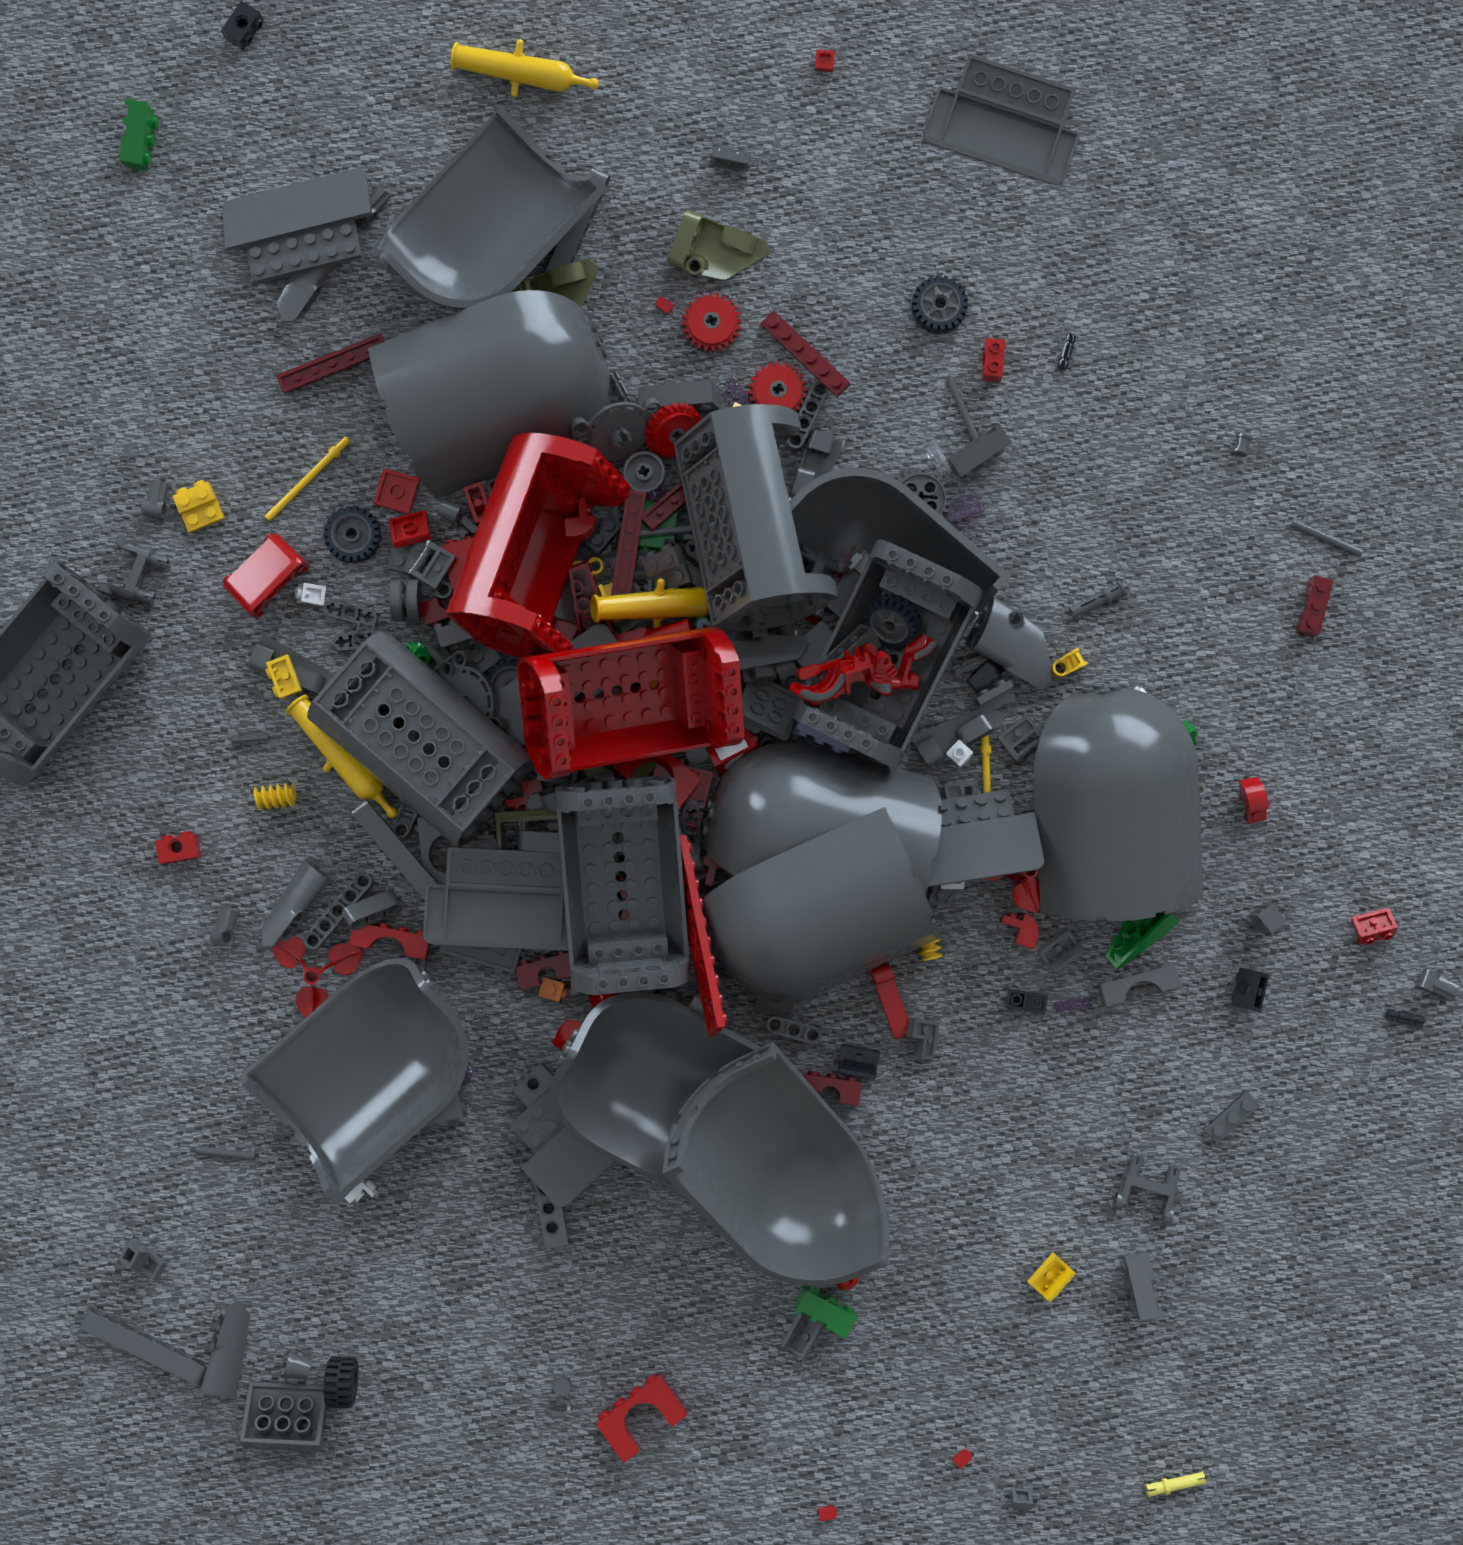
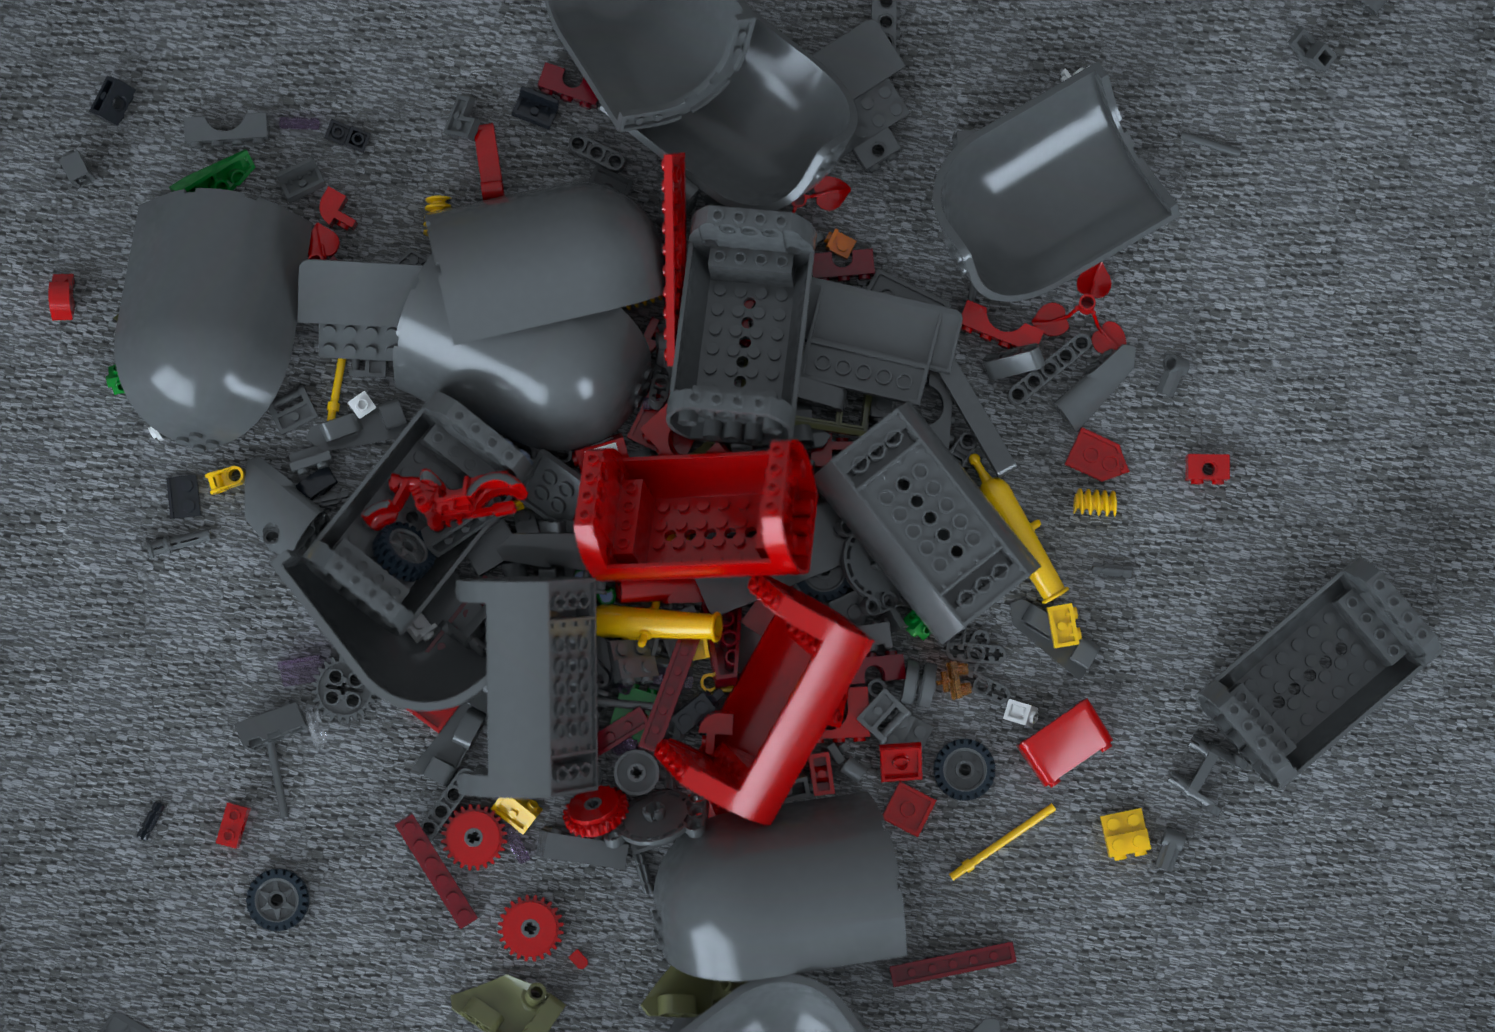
camera: 170 degrees left, 0 degrees up
(282, 840) = (1096, 456): none -> red tile
(370, 603) = (954, 671): none -> clear orange hips
(1102, 642) = (183, 496): none -> black plate

